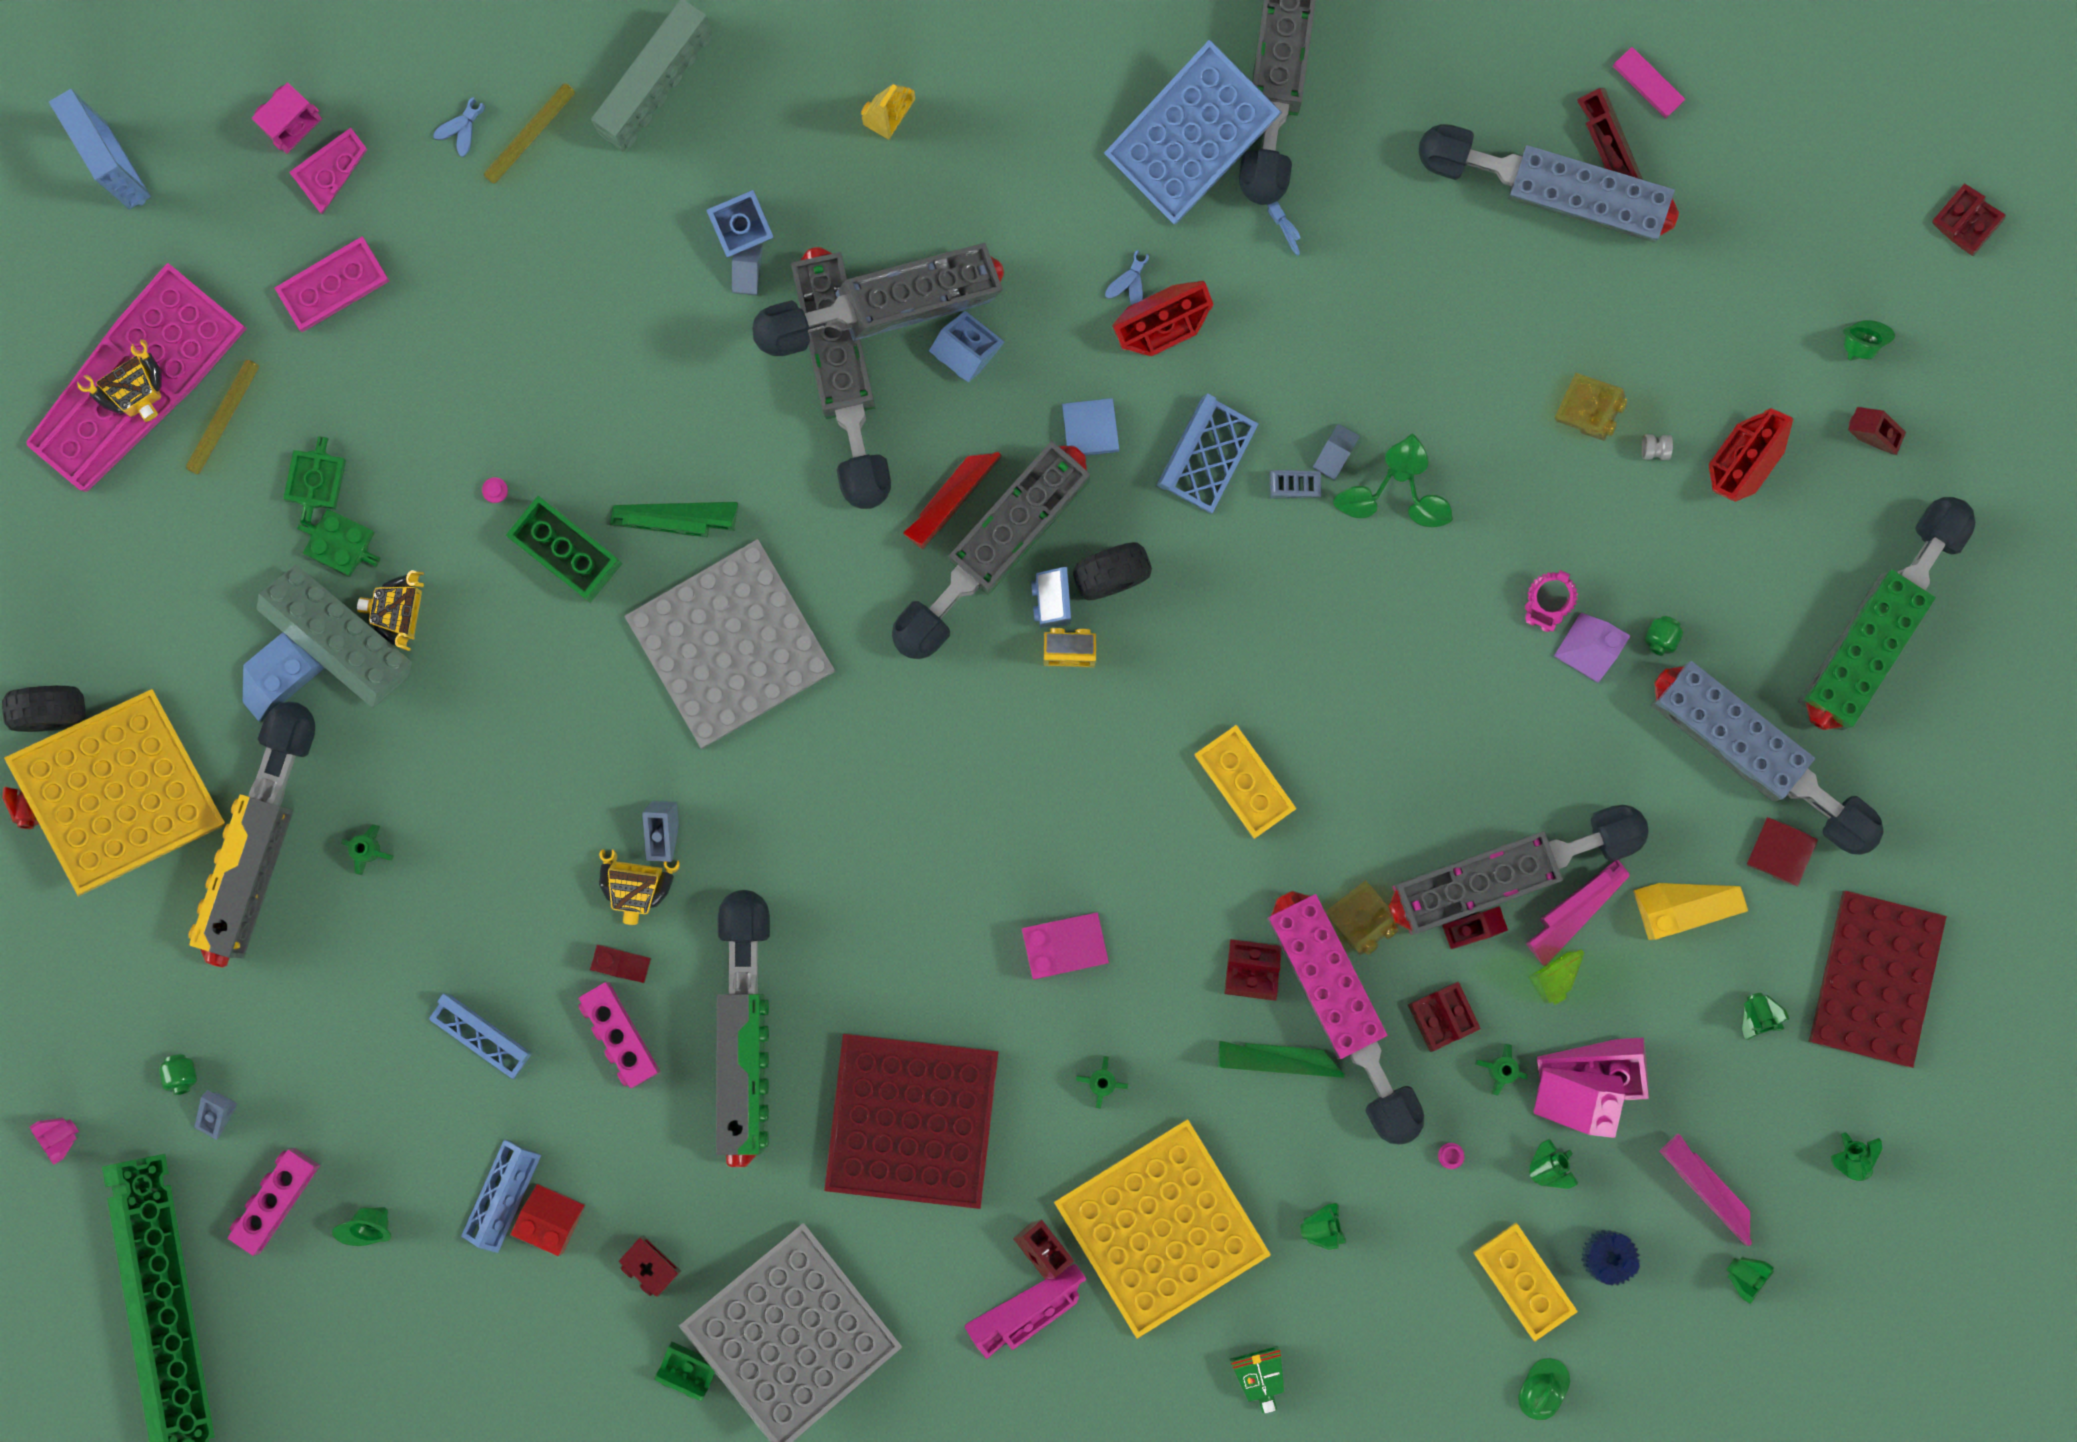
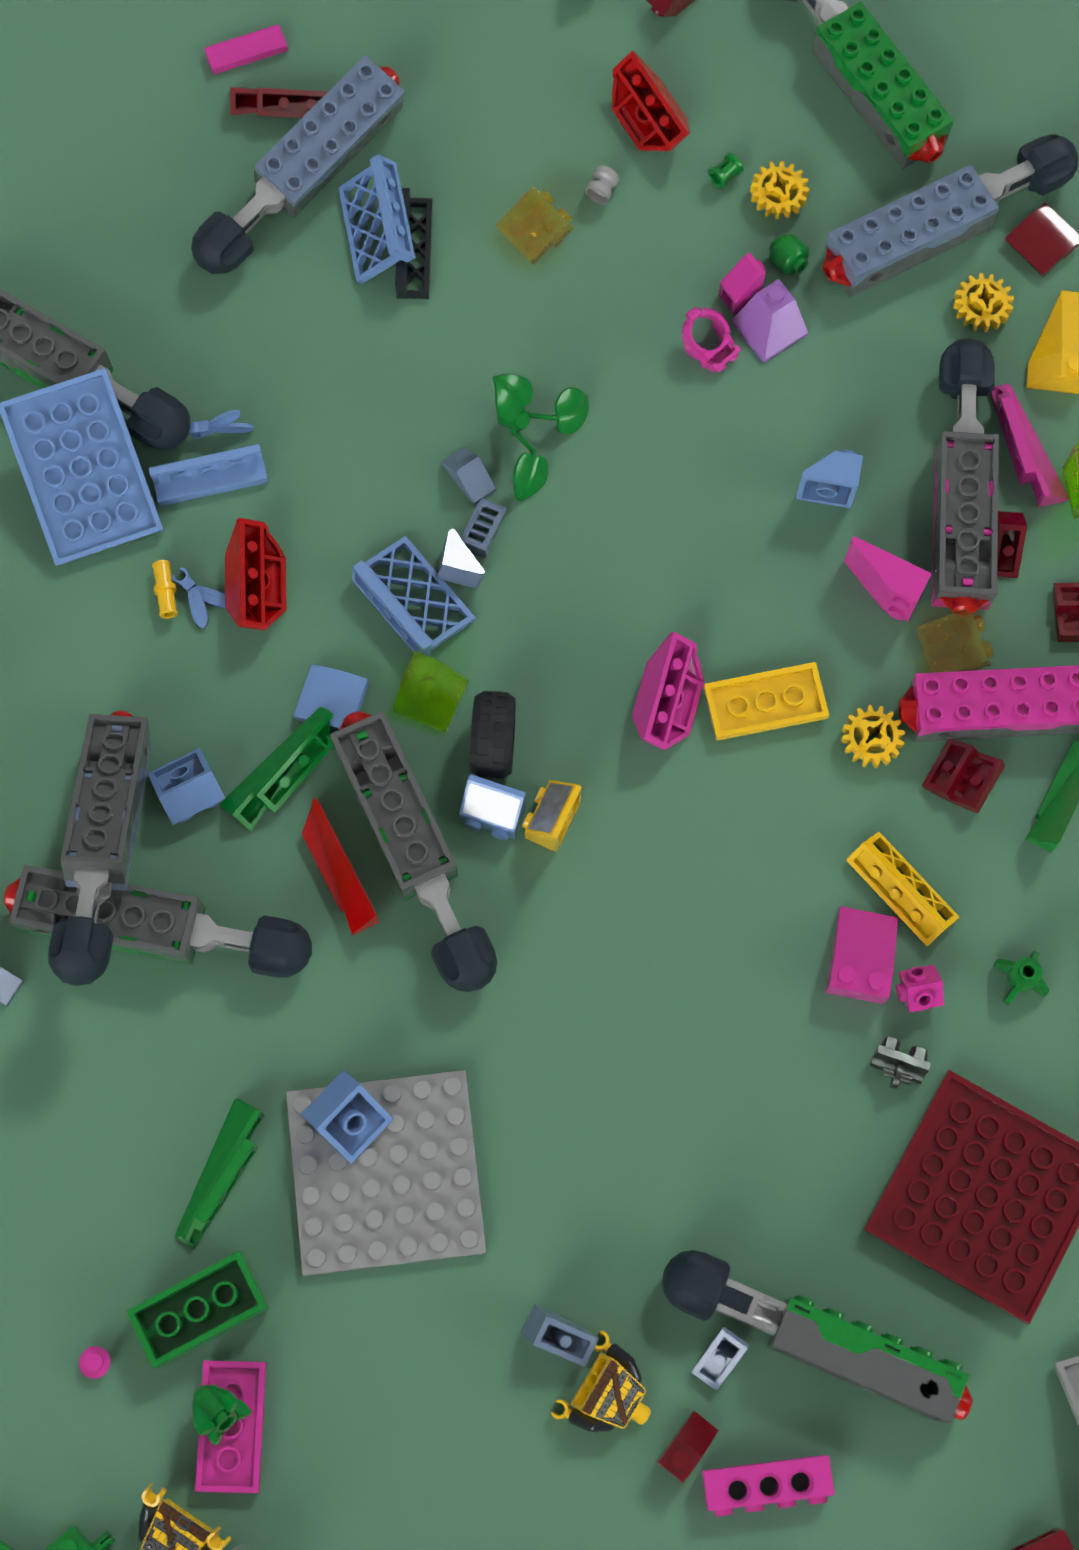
camera: 65 degrees left, 10 degrees down
(491, 613) = (237, 1460): none -> dark pink plate
(494, 597) = (216, 1411): none -> green brick
(695, 960) = (720, 1358): none -> slope
(755, 594) = (347, 1116): none -> medium blue slope
(984, 1013) = (898, 1065): none -> pearl dark grey hips
(1011, 416) = (281, 771): none -> green wedge
(1054, 1002) = (920, 988): none -> dark pink brick
(1123, 250) = (164, 589): none -> yellow pin
(1130, 504) = (429, 692): none -> clear neon green slope
(1130, 955) = (900, 889): none -> yellow fence
(1213, 699) = (669, 693): none -> dark pink wedge
(1237, 239) = (209, 475): none -> medium blue fence
(1249, 893) = (880, 744): none -> yellow gear
(1251, 478) = (458, 563): none -> slope
(1392, 847) = (888, 579): none -> dark pink slope
(1464, 757) = (832, 479): none -> medium blue slope
(1522, 302) = (402, 274): none -> black fence
(1538, 279) = (390, 212): none -> medium blue fence
(1613, 607) = (742, 283): none -> dark pink slope
(1700, 830) = (975, 309): none -> yellow gear
(1715, 595) = (781, 181): none -> yellow gear
(1720, 547) = (725, 170): none -> green bush

